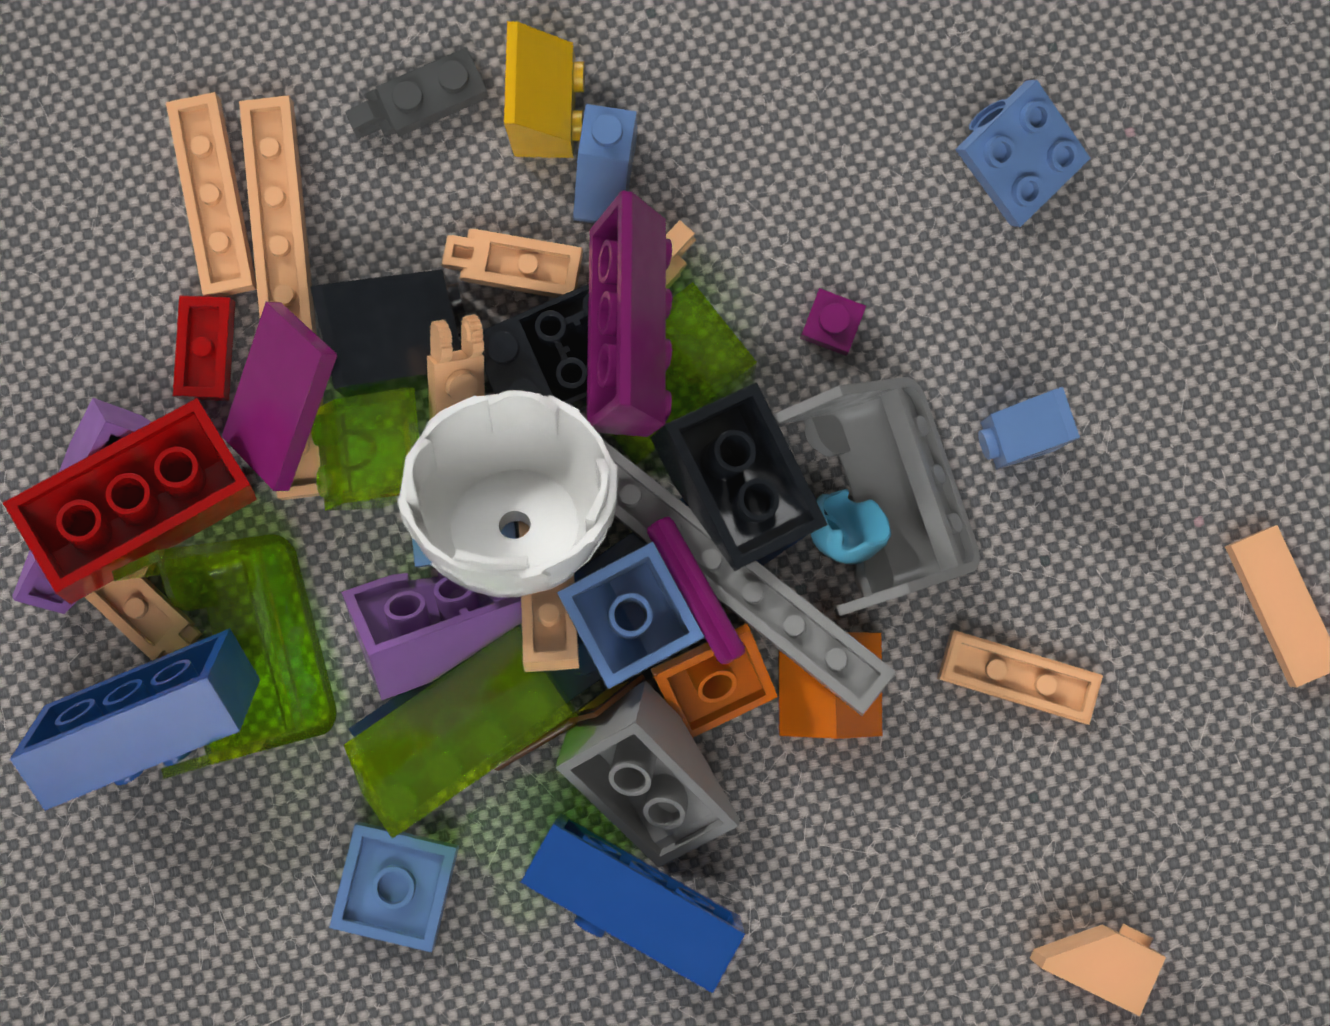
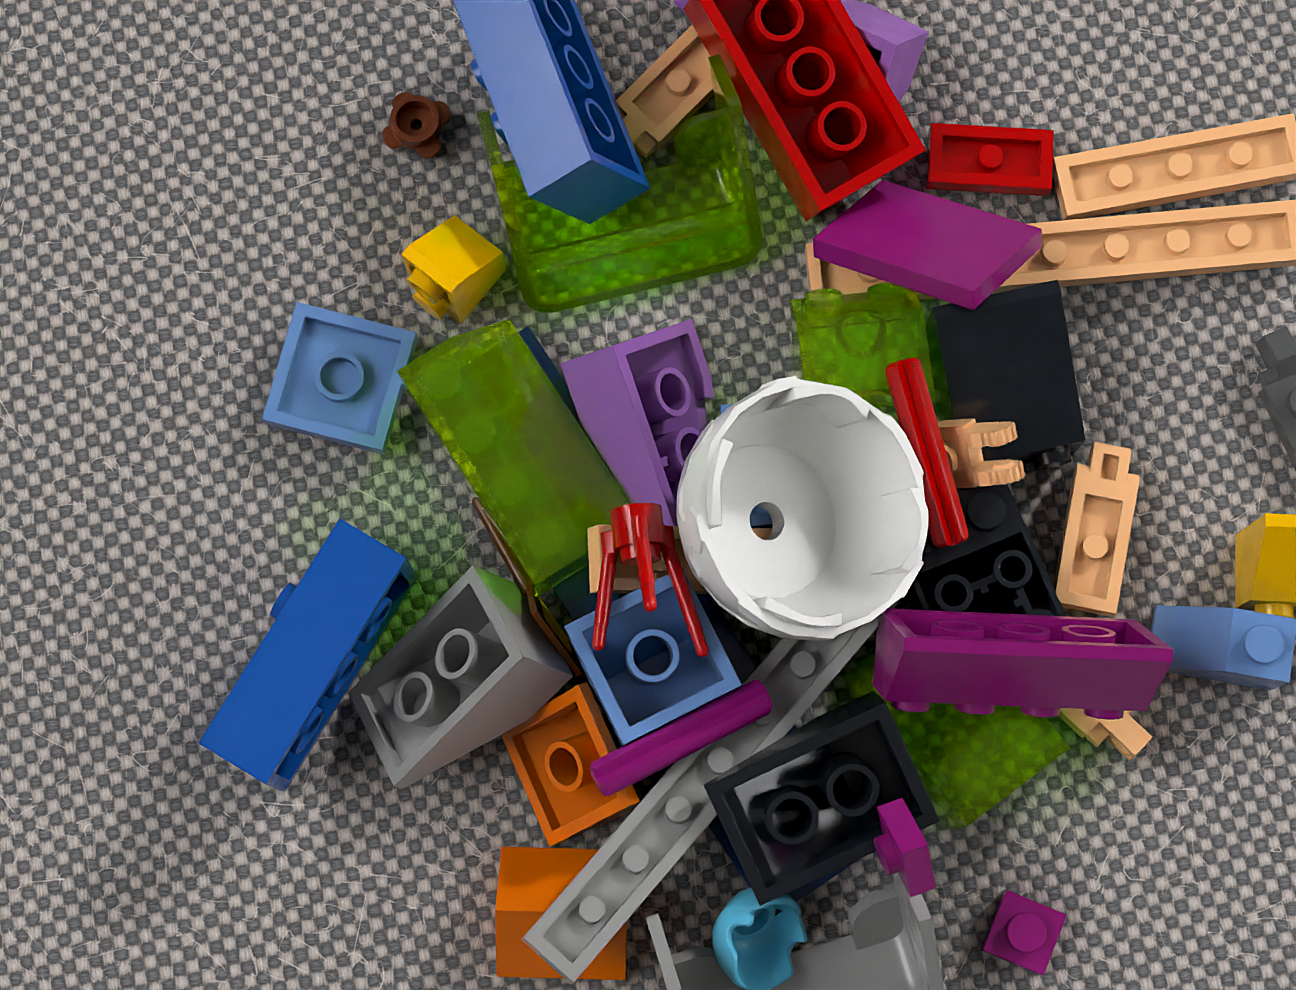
camera: 90 degrees right, 5 degrees down
(157, 835) = (413, 108): none -> copper plate
(299, 795) = (452, 269): none -> yellow slope
(434, 398) = (921, 427): none -> red axle
(535, 627) = (639, 539): none -> red plant
(782, 408) = (904, 848): none -> magenta plate

